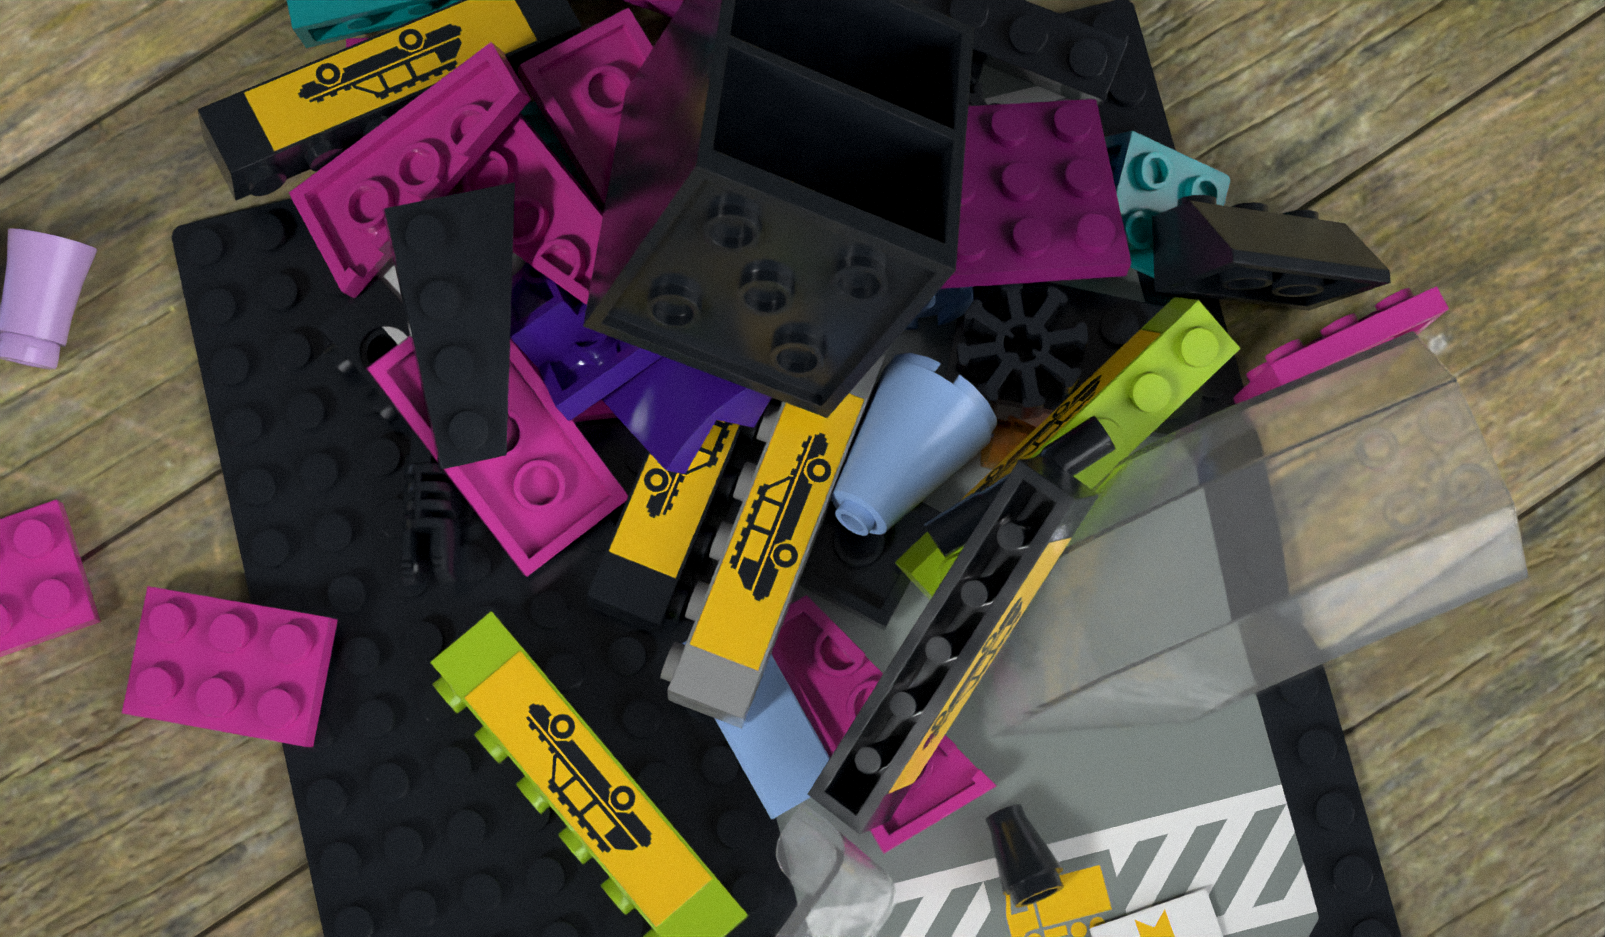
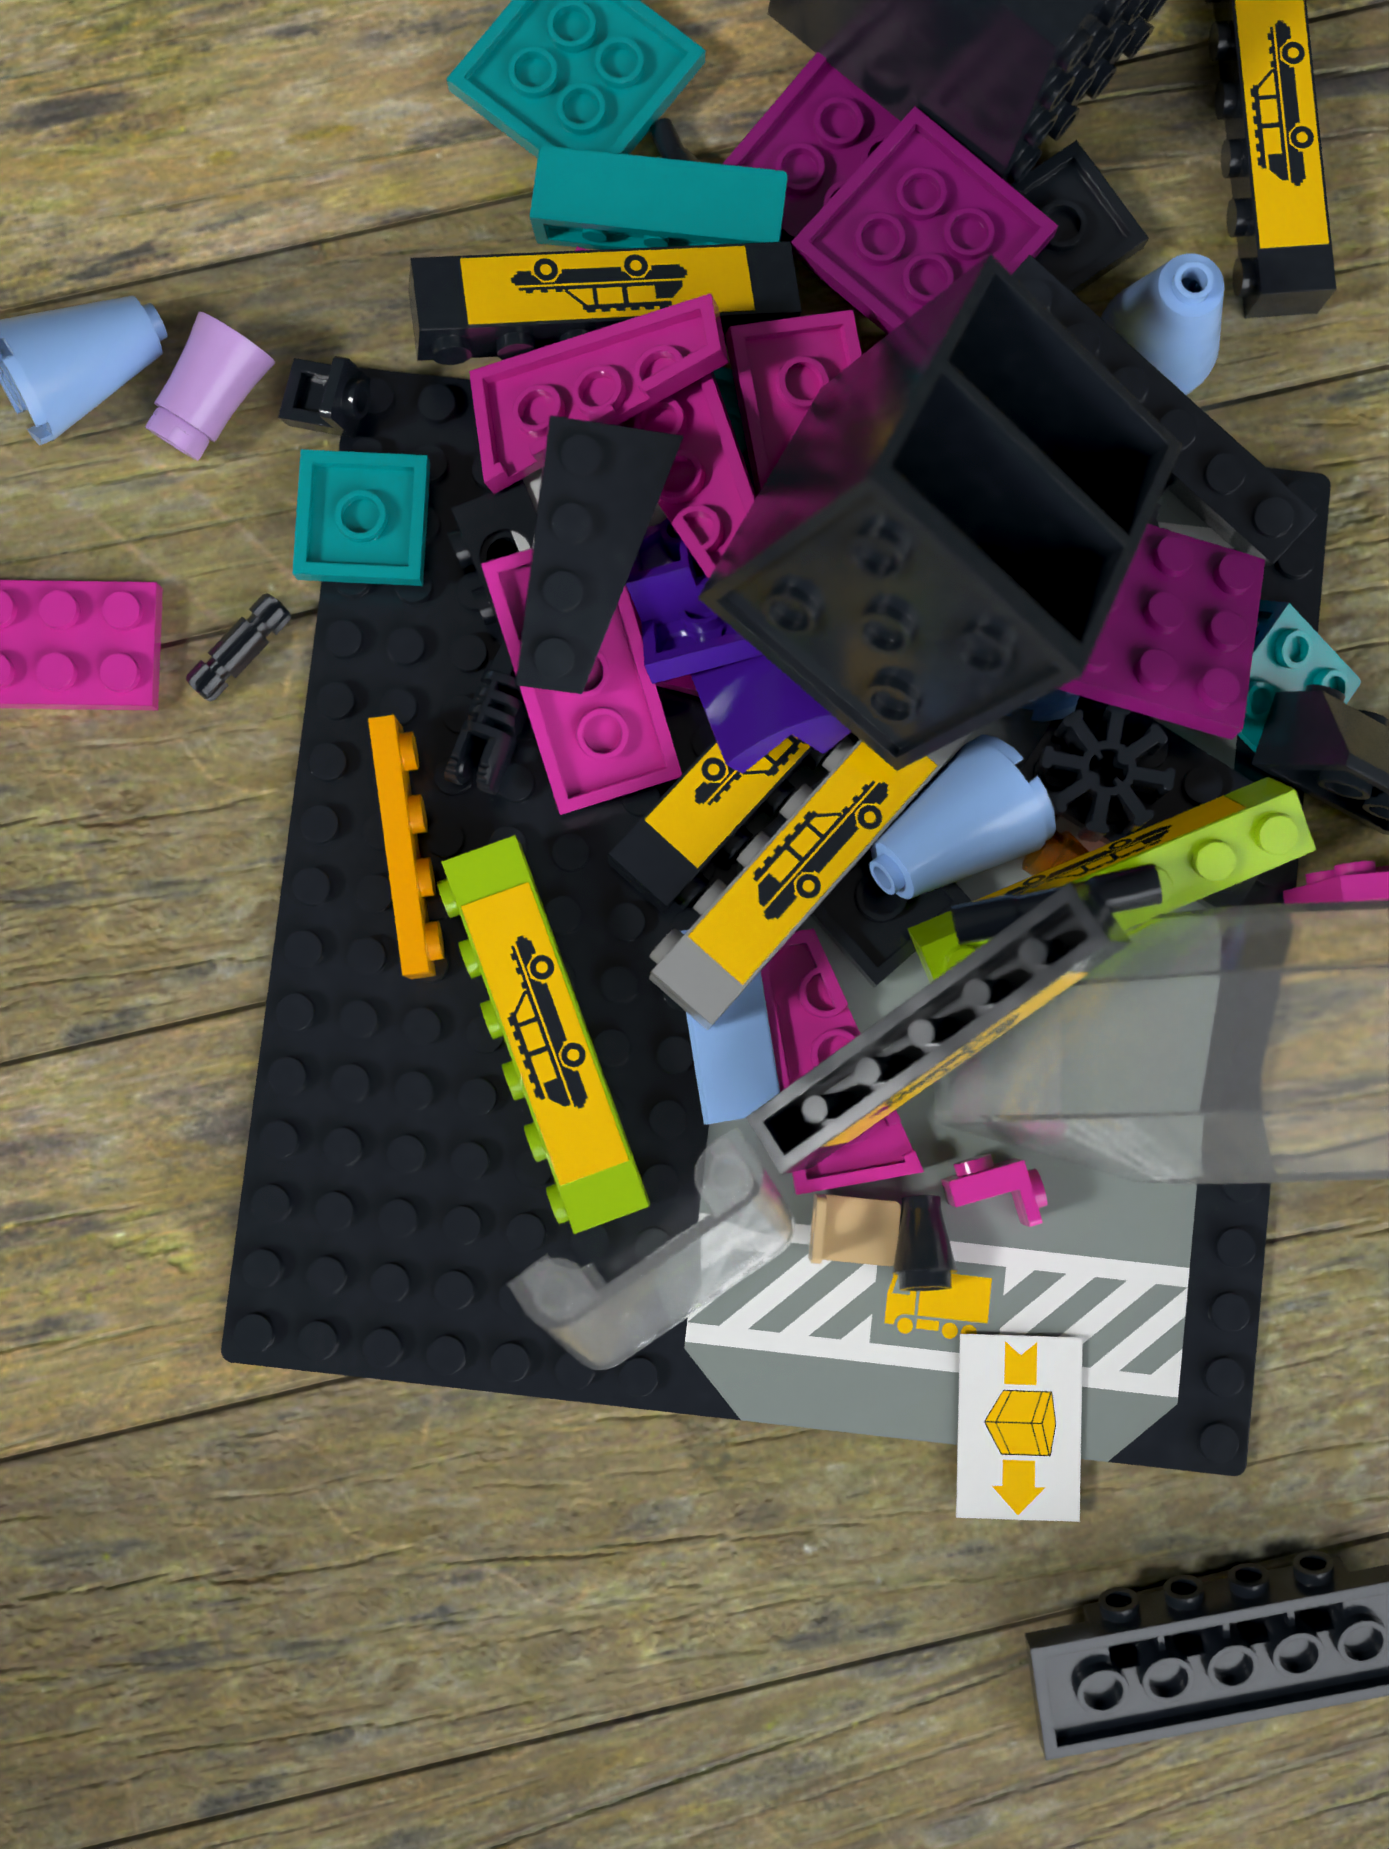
camera: 20 degrees right, 5 degrees up
(158, 265) = (326, 396): none -> black bracket
(158, 532) = (238, 647): none -> black axle
(230, 666) = (259, 796): dark pink plate -> none
(234, 366) = (361, 517): none -> teal plate
(403, 686) = (402, 819): none -> light orange plate
(951, 866) = (854, 1230): none -> tan bracket
(1053, 771) = (981, 1179): none -> dark pink bracket

